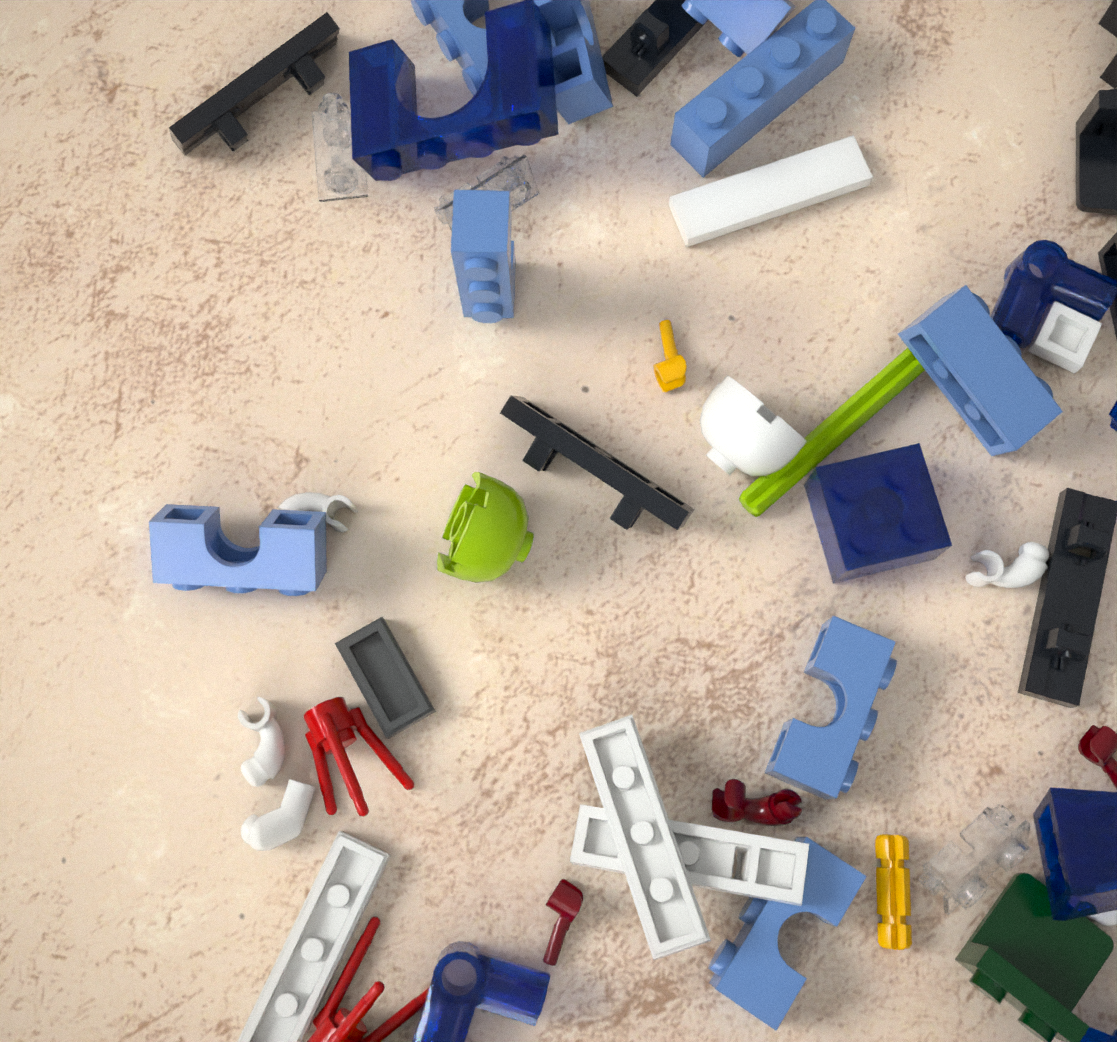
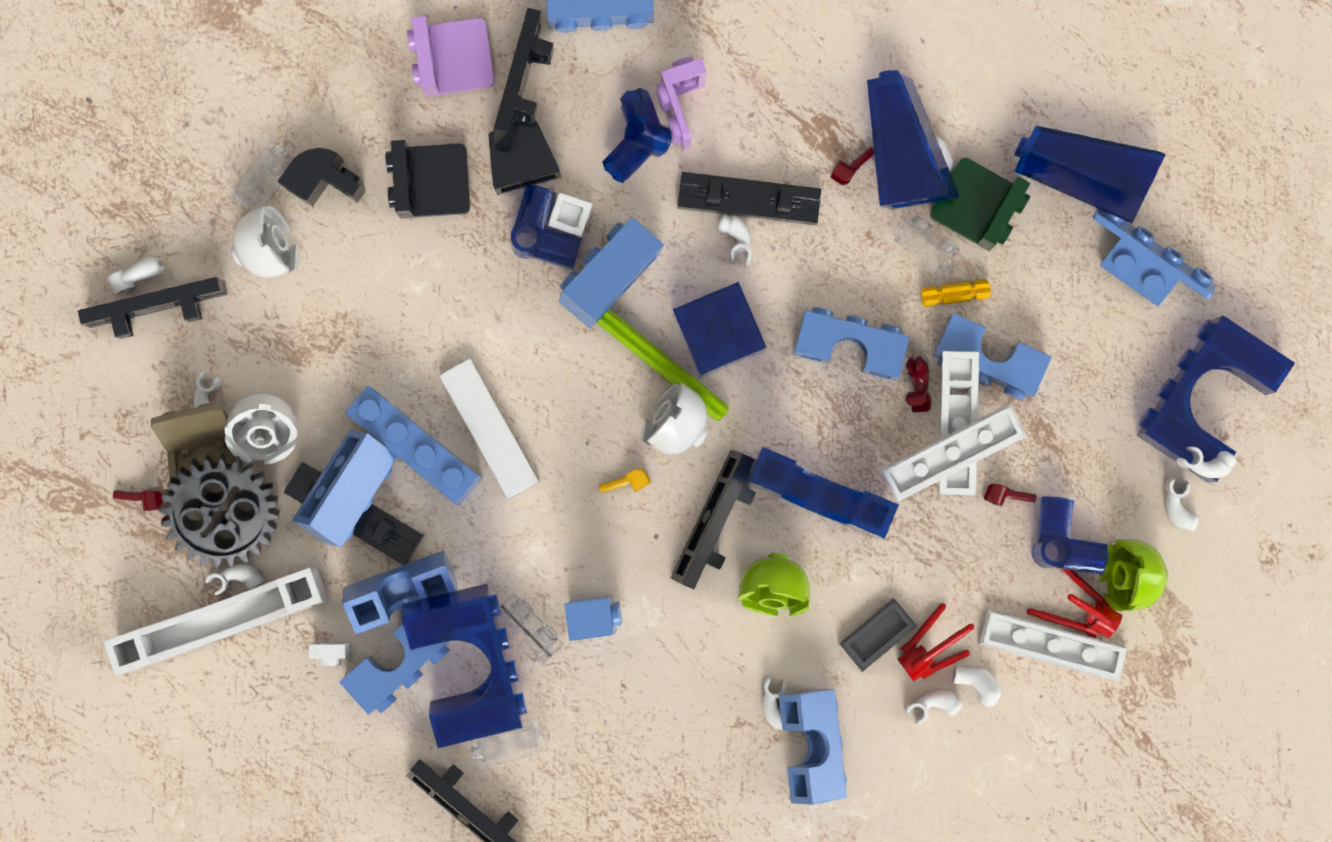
camera: 100 degrees left, 10 degrees up
(644, 560) = (841, 504): none -> clear blue arch

